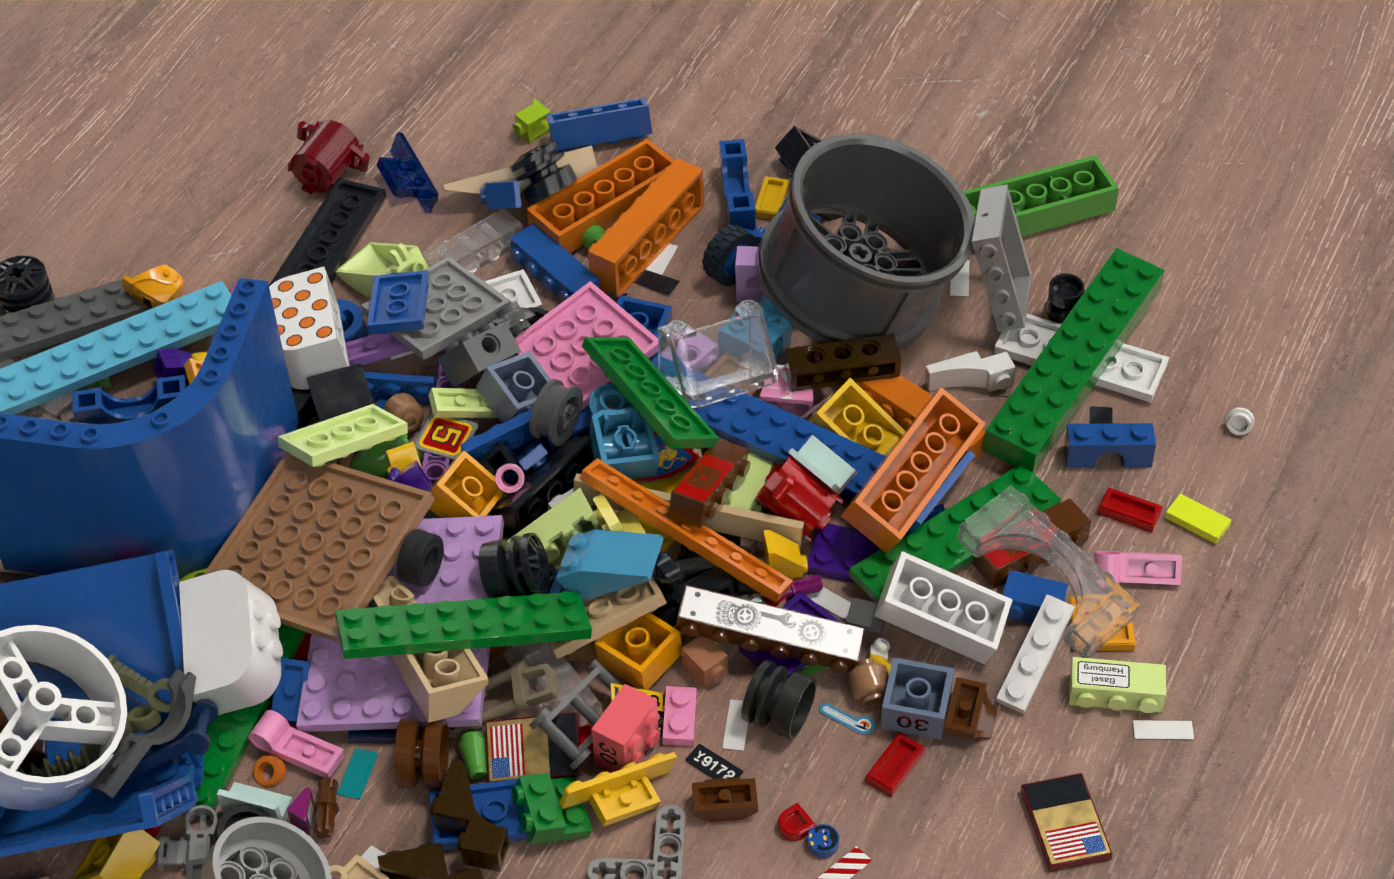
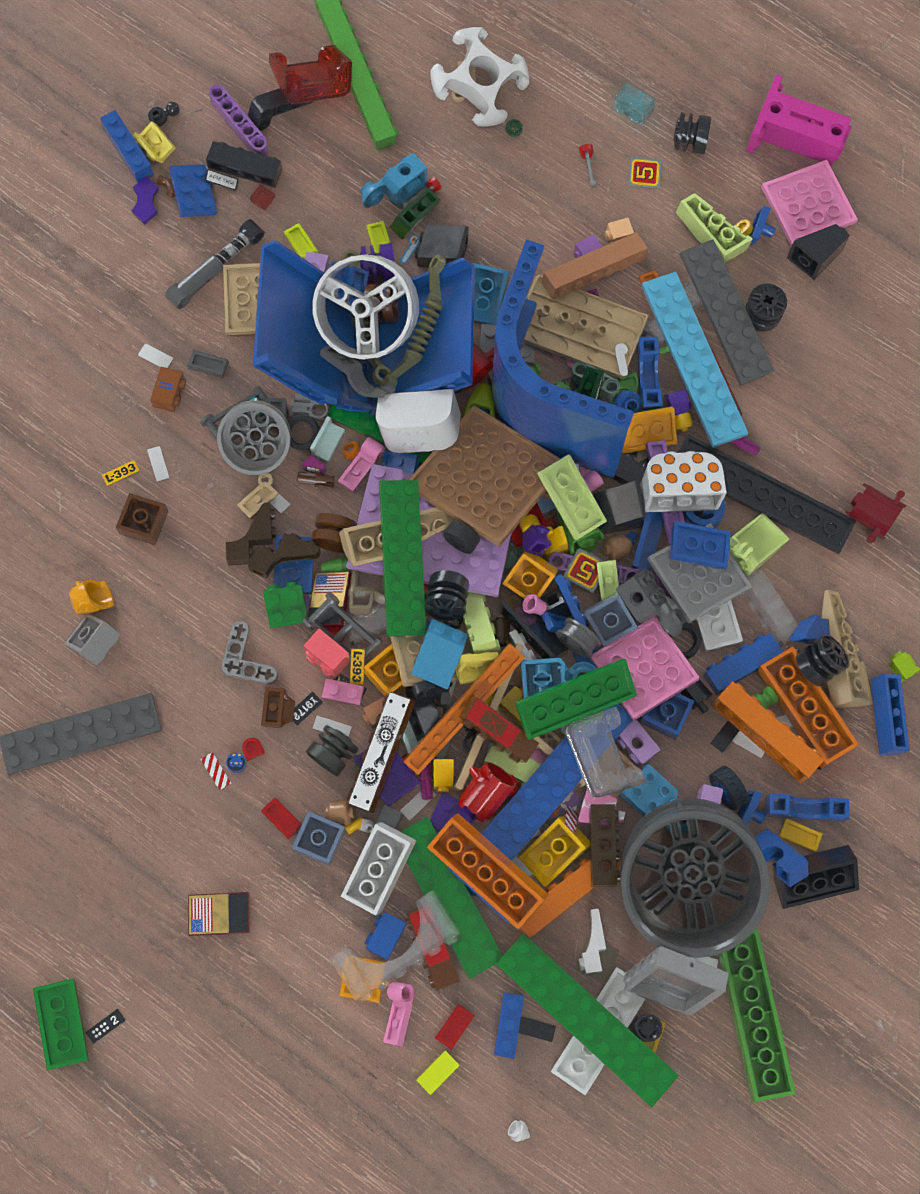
camera: 95 degrees right, 25 degrees up
(155, 286) = (753, 393): light orange helmet -> none
(357, 773) = (341, 500): teal sticker -> none
(406, 174) = (855, 566): clear blue bracket -> none
(622, 792) = (286, 648): yellow bracket -> none
(825, 464) = (501, 808): light aqua panel -> none
(862, 724) = (316, 804): dark azure sticker -> none
(970, 711) = (306, 872): reddish brown slope -> none
(1035, 654) = (339, 924): white plate -> none
(1117, 685) = (307, 973): yellowish green brick -> none
(1163, 729) = (275, 997): white sticker -> none

